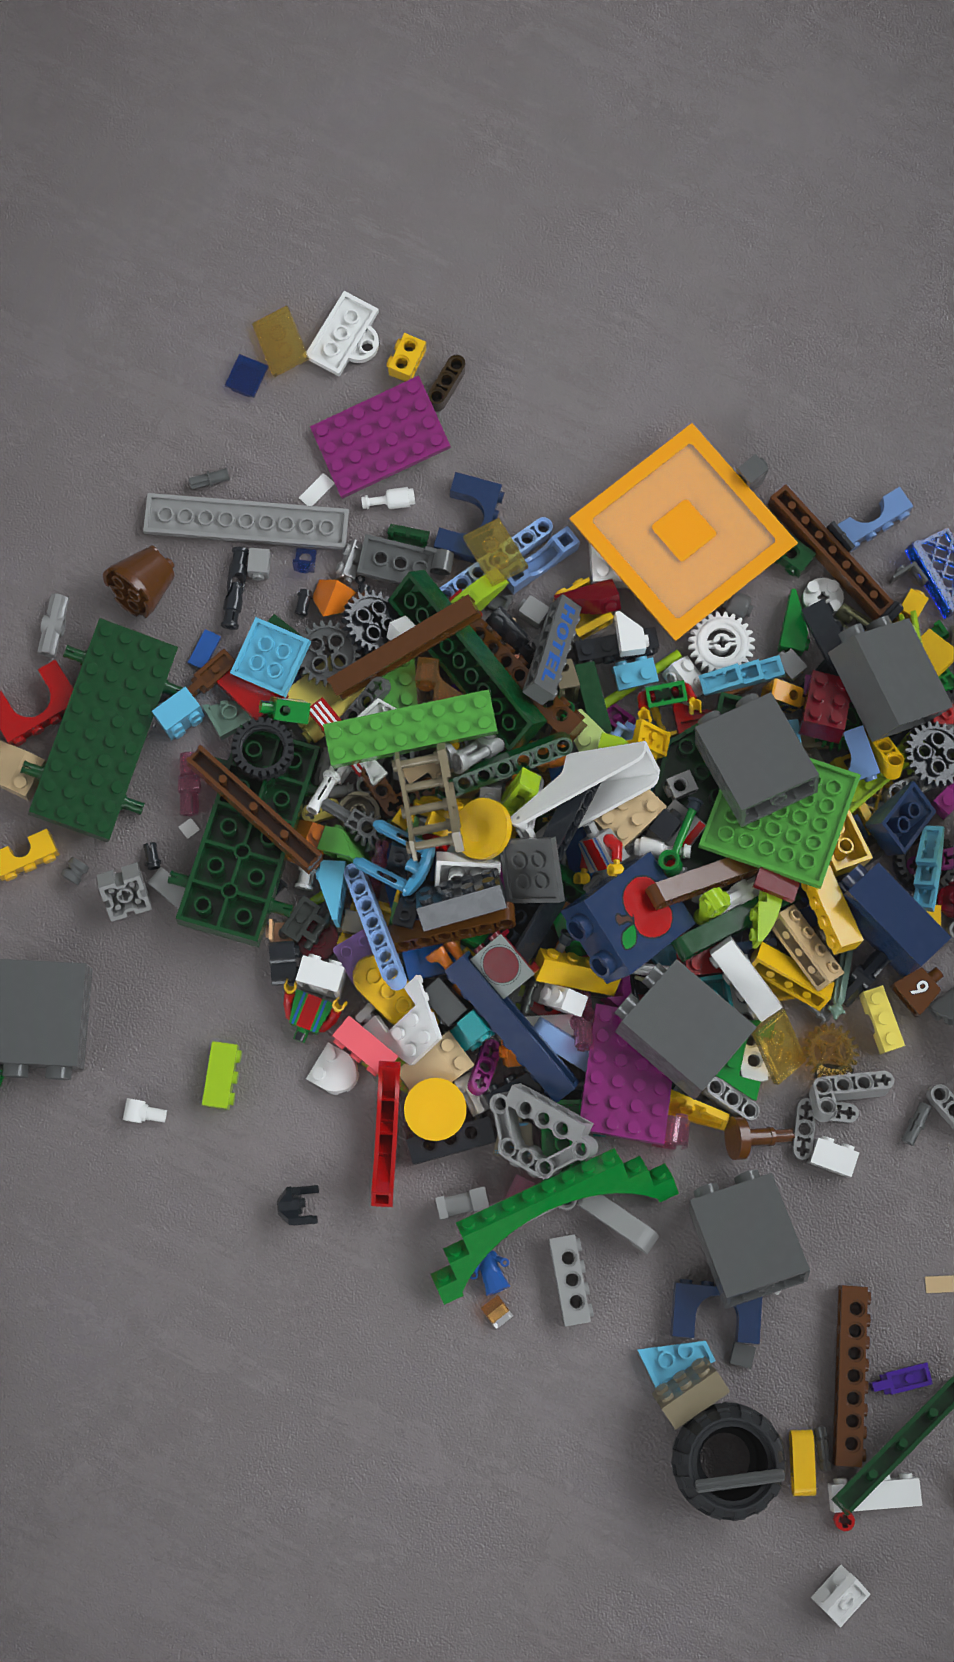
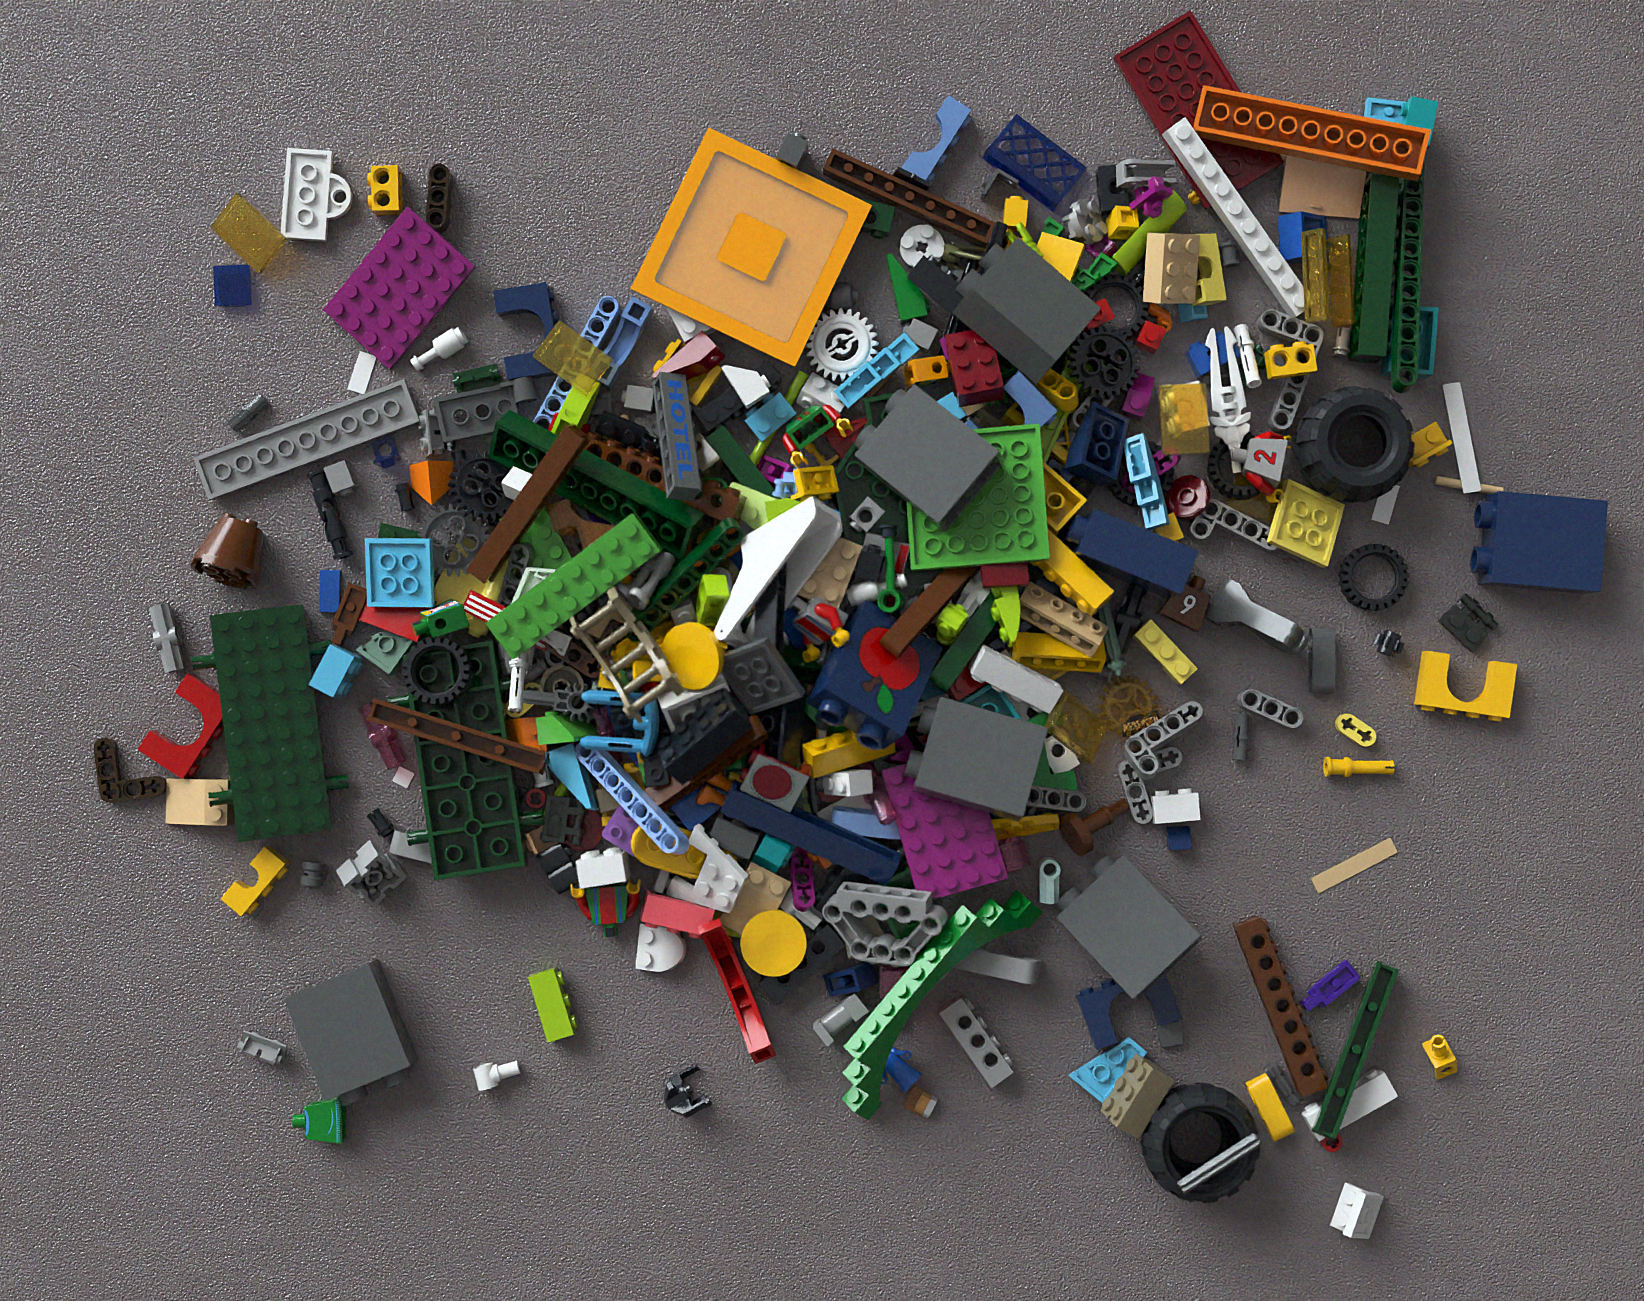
camera: 20 degrees left, 10 degrees up
(285, 894) = (529, 798): none -> red bush
(486, 1174) = (850, 979): none -> dark blue slope
(694, 1173) = (1048, 882): none -> light aqua piece
(824, 1186) = (1178, 838): none -> dark blue slope

